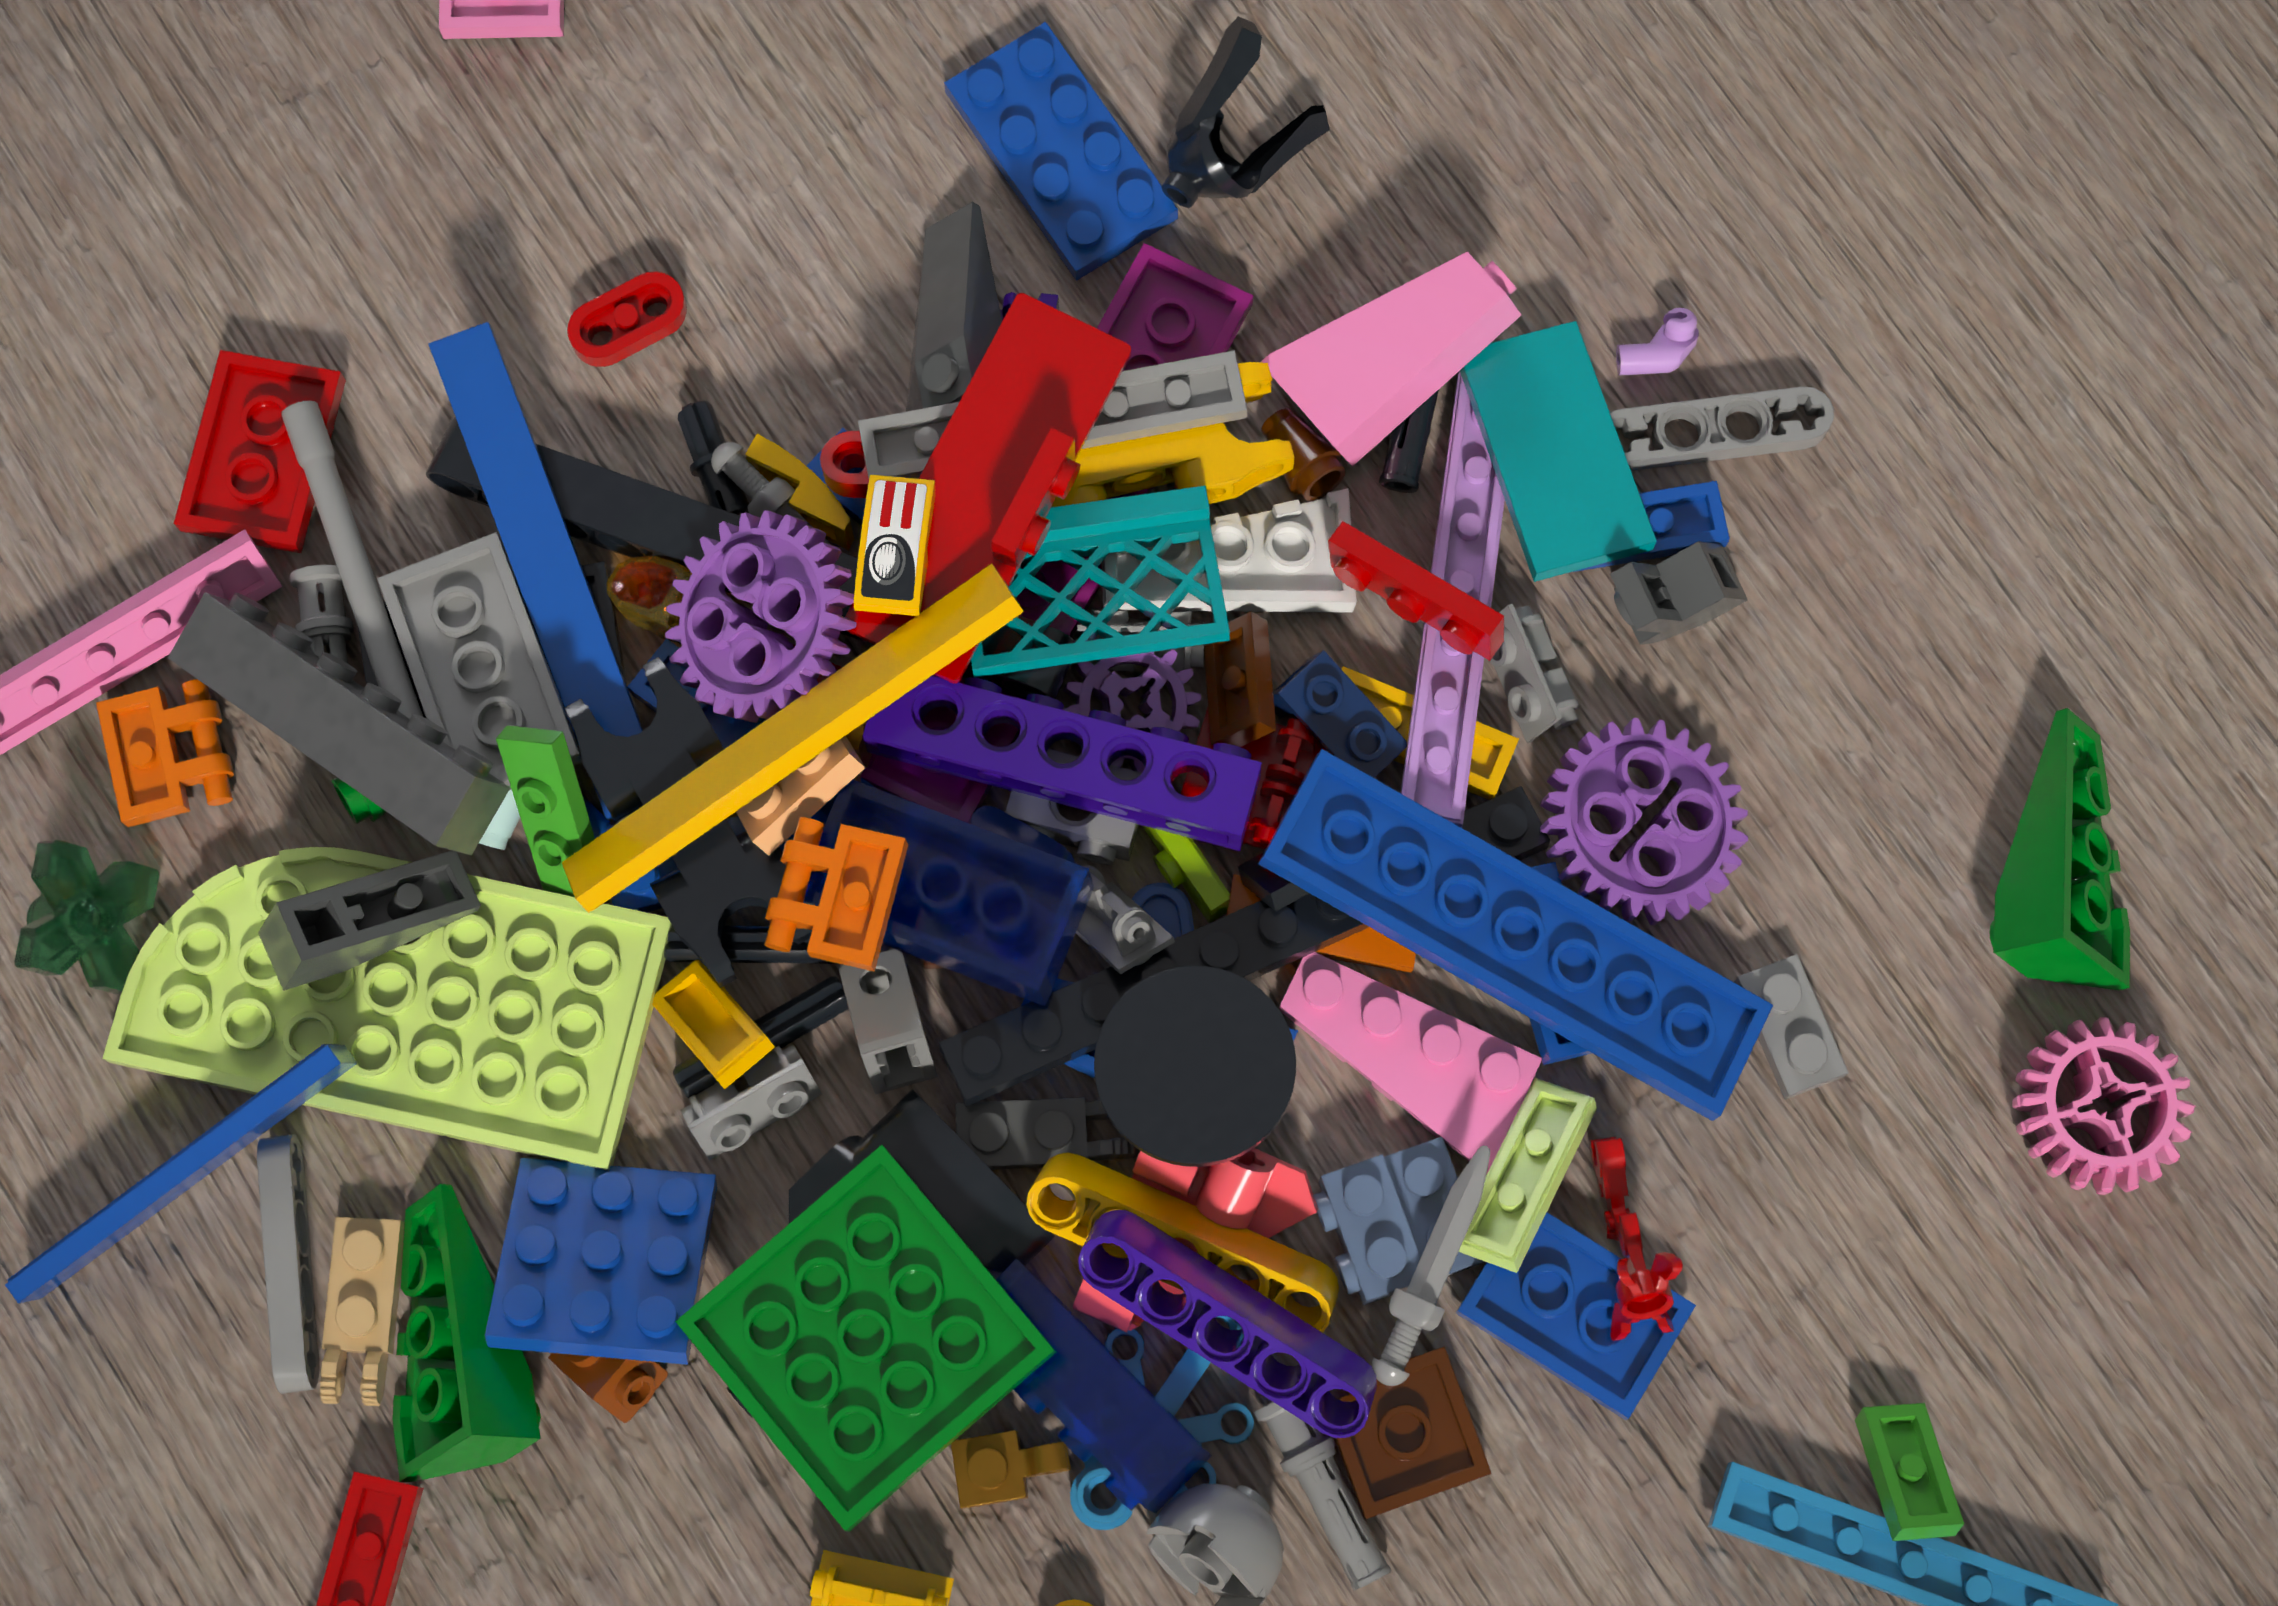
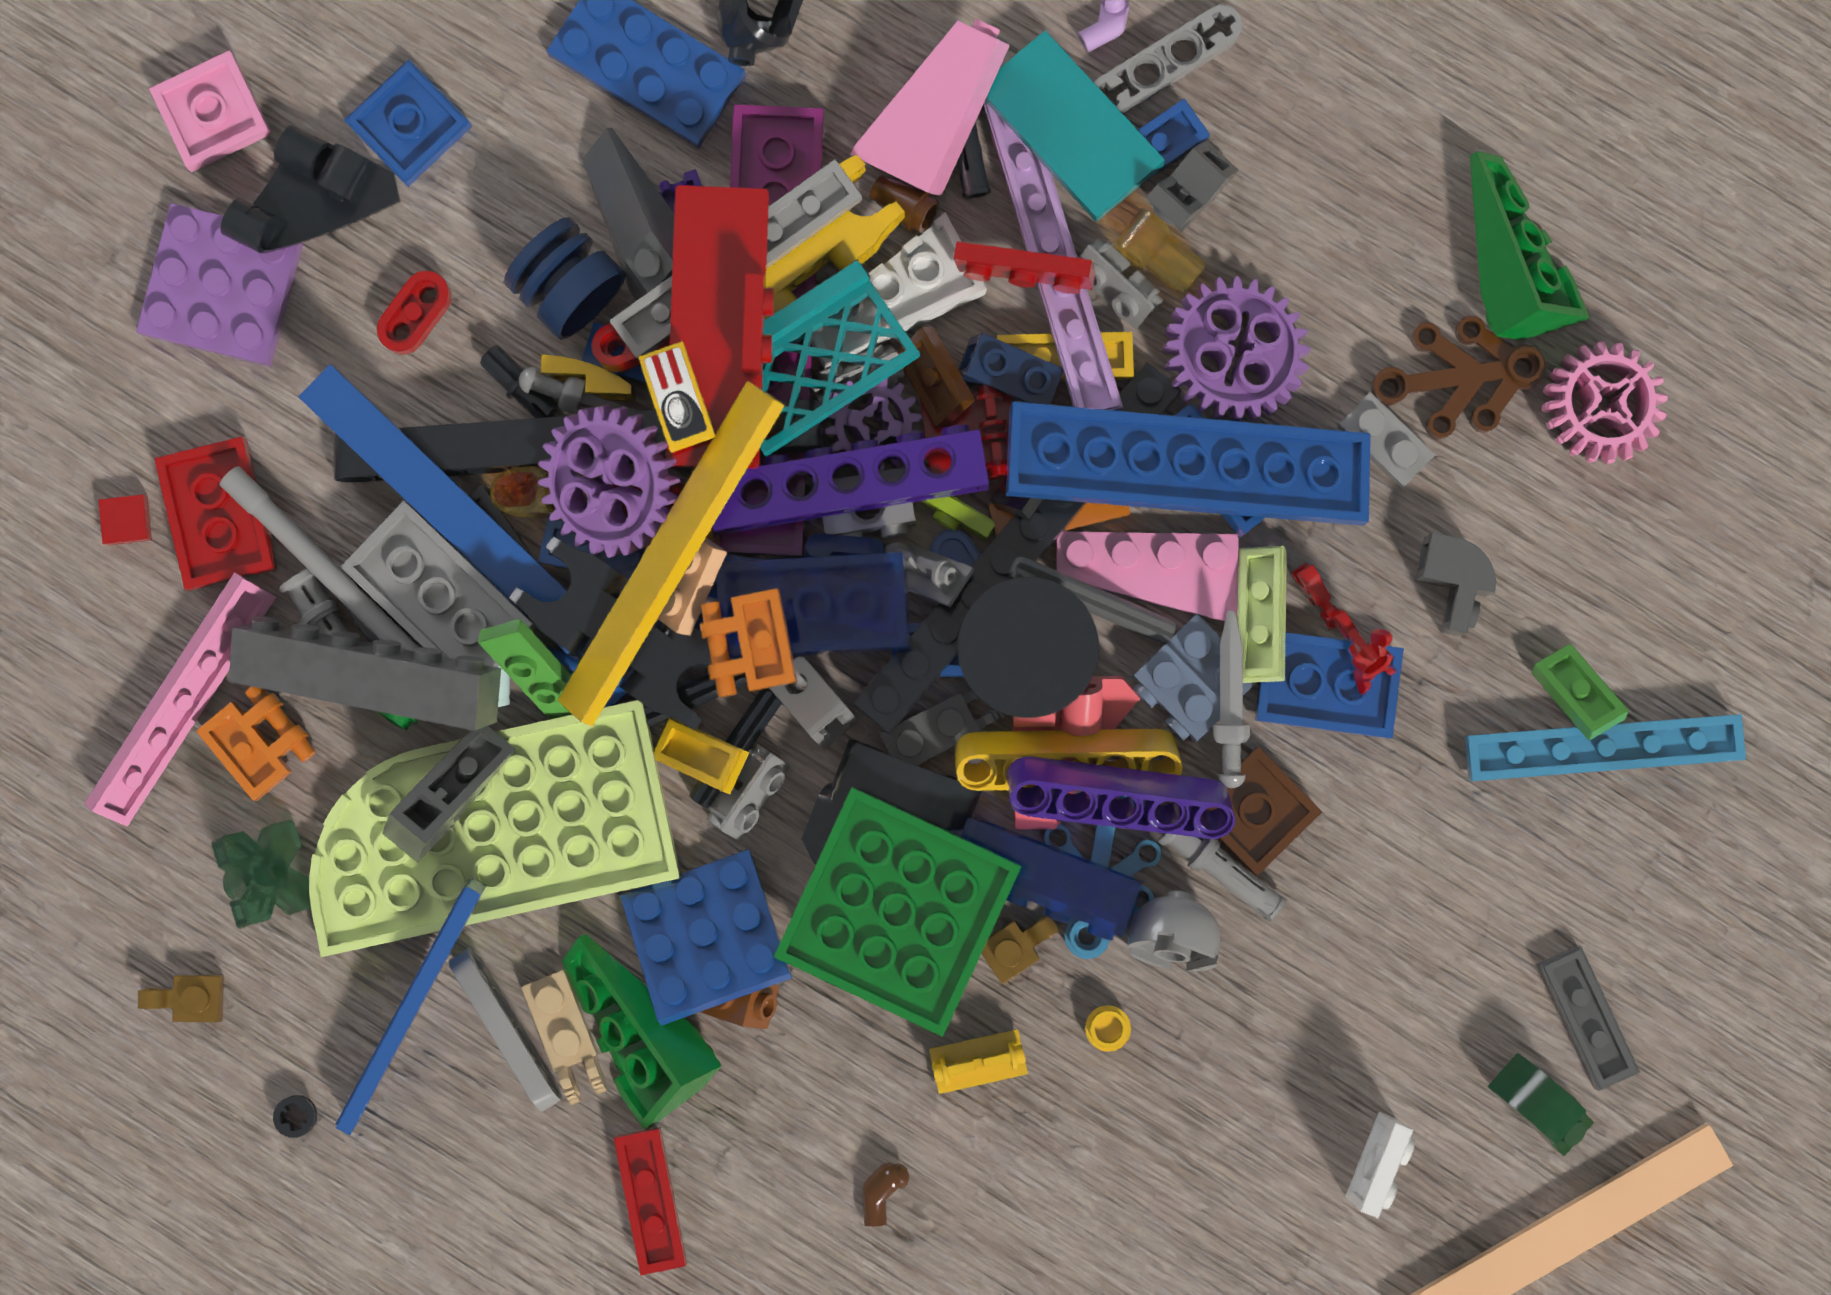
camera: 20 degrees left, 10 degrees up
(147, 410) = (125, 519): none -> red tile
(409, 184) = (215, 290): none -> medium lavender plate
(573, 127) = (309, 194): none -> black panel
(734, 95) = (408, 123): none -> blue tile
(831, 354) = (562, 276): none -> dark blue wheel
(1326, 1068) = (1101, 602): none -> dark grey axle
(1592, 643) = (1149, 245): none -> clear yellow piece
(1818, 1235) = (1463, 570): none -> dark grey brick
(1933, 988) = (1466, 374): none -> reddish brown plant

